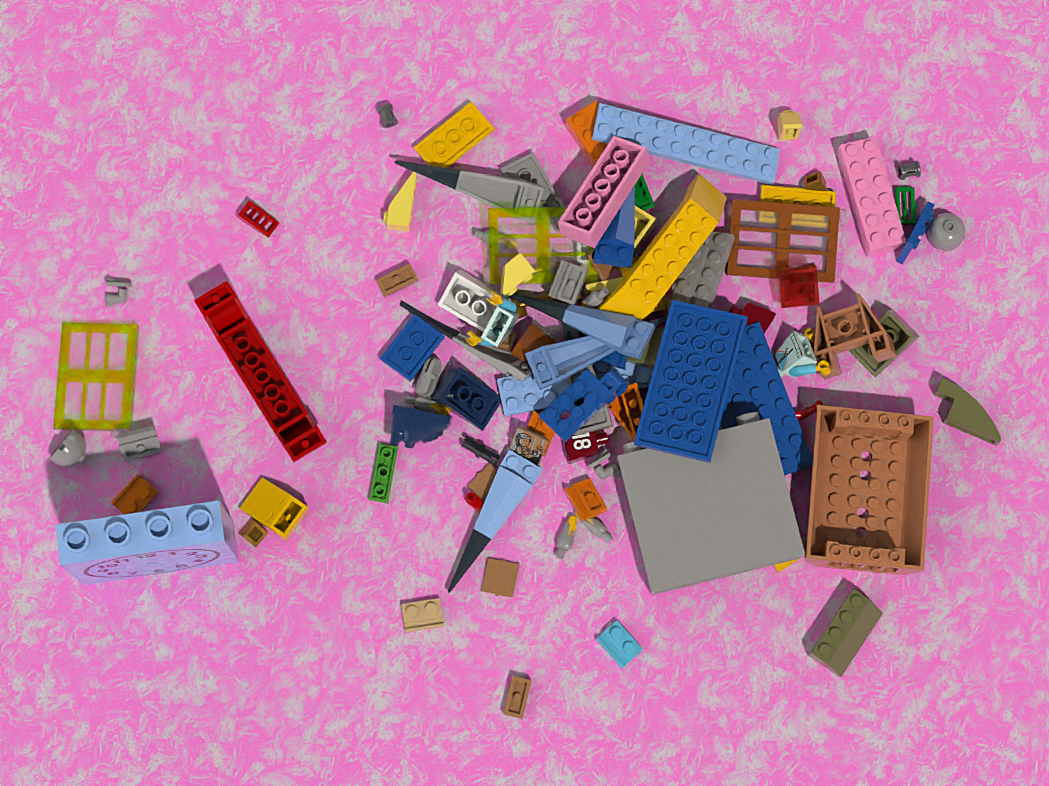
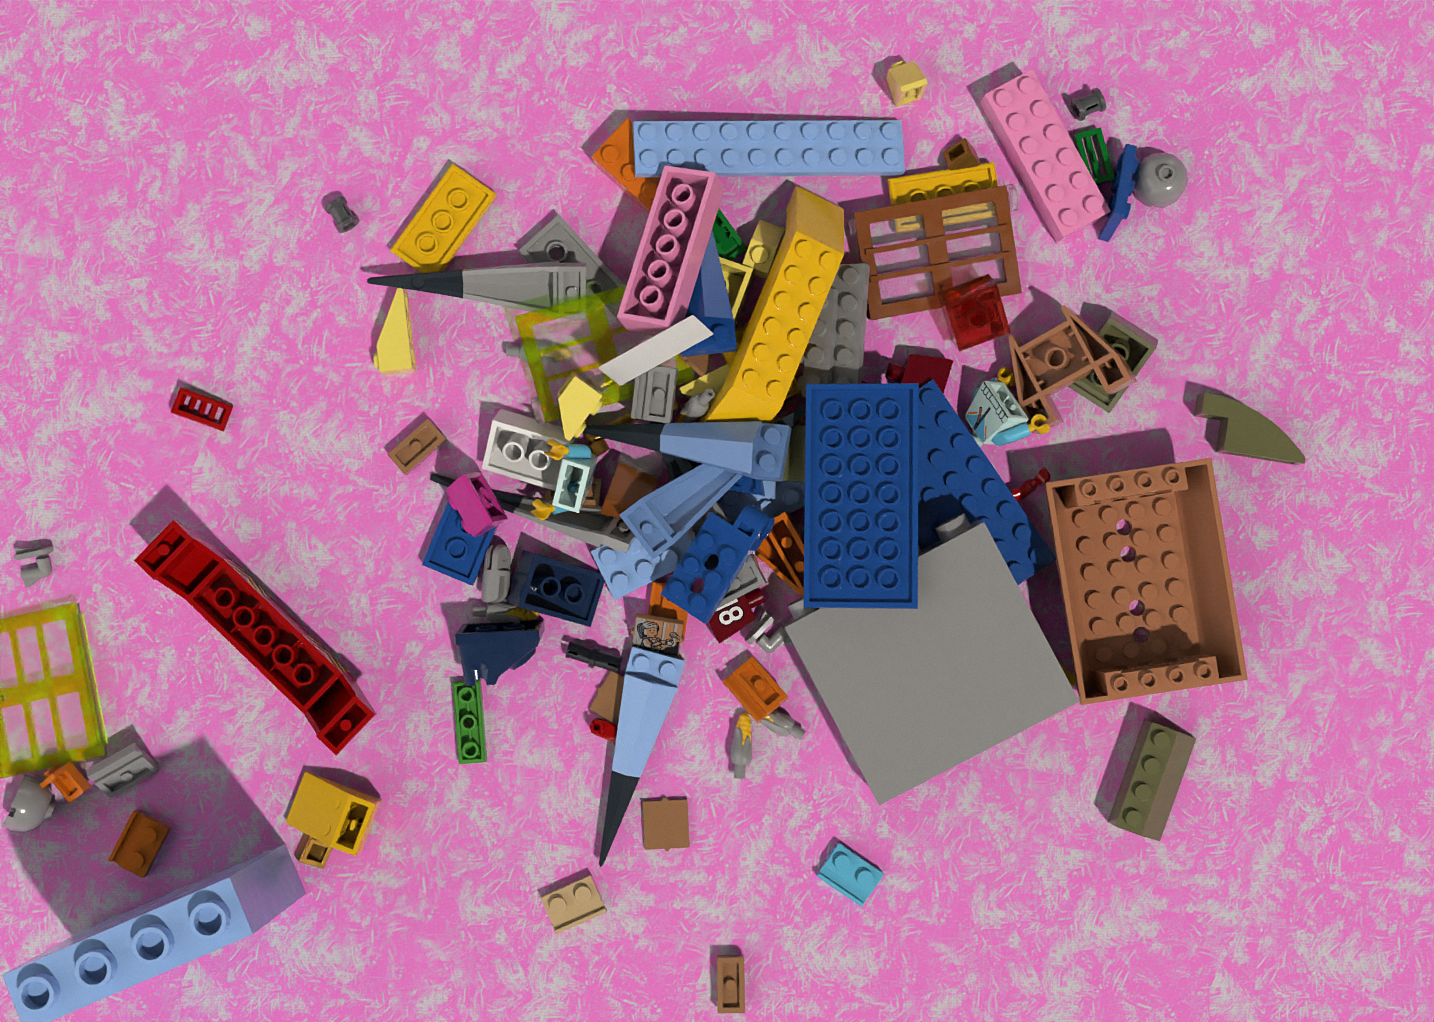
camera: 10 degrees left, 10 degrees up
(99, 441) = (66, 780): none -> orange bracket
(428, 325) = (475, 503): none -> dark pink slope
(577, 251) = (656, 350): none -> white sticker
(665, 208) = (763, 248): none -> light yellow slope

